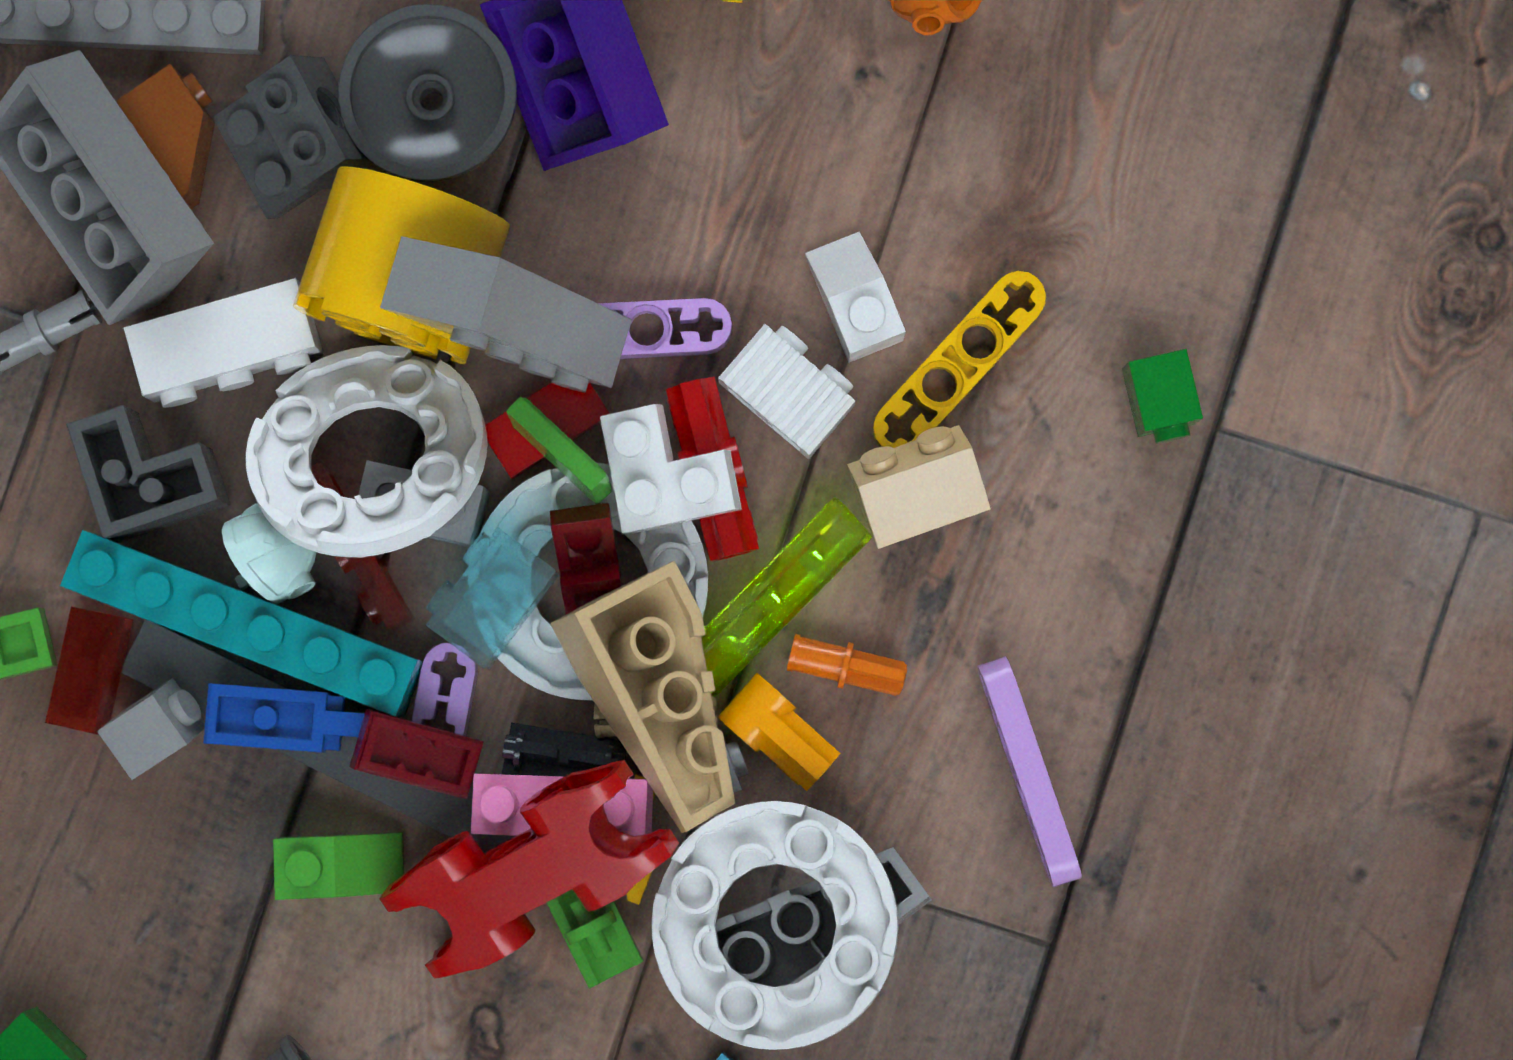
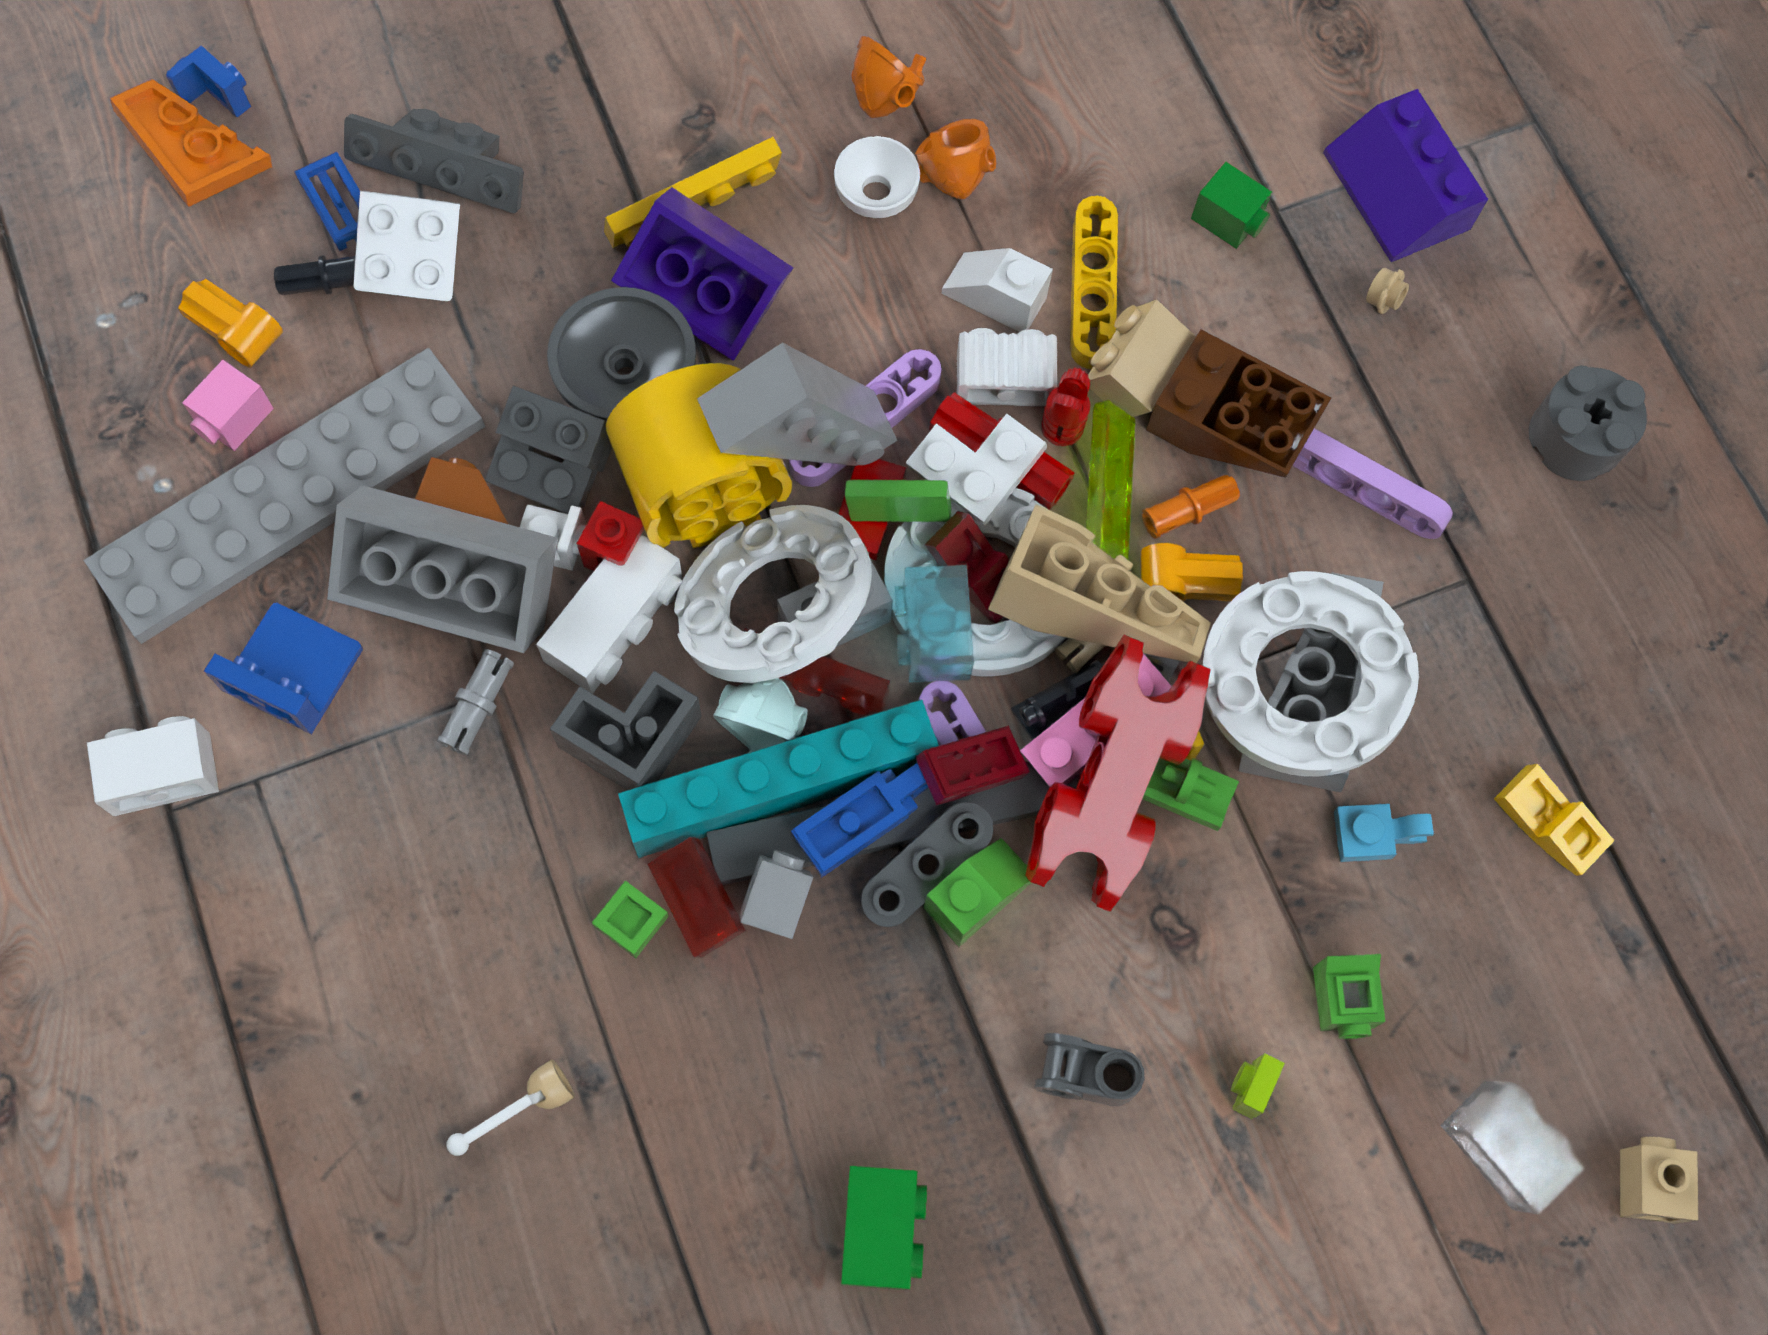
camera: 50 degrees left, 15 degrees down
(233, 221) = (560, 525): none -> white bracket
(270, 272) = (609, 536): none -> red bracket
(332, 793) = (902, 870): none -> dark grey plate
(788, 490) = (1068, 408): none -> red hinge
(838, 59) = (877, 161): none -> white piece
(930, 125) = (956, 157): none -> orange helmet
(967, 613) = (1236, 408): none -> reddish brown slope
(1236, 605) = (1387, 290): none -> tan plate
(1333, 901) = (1588, 422): none -> dark grey brick
(1366, 501) = (1406, 176): none -> dark purple slope

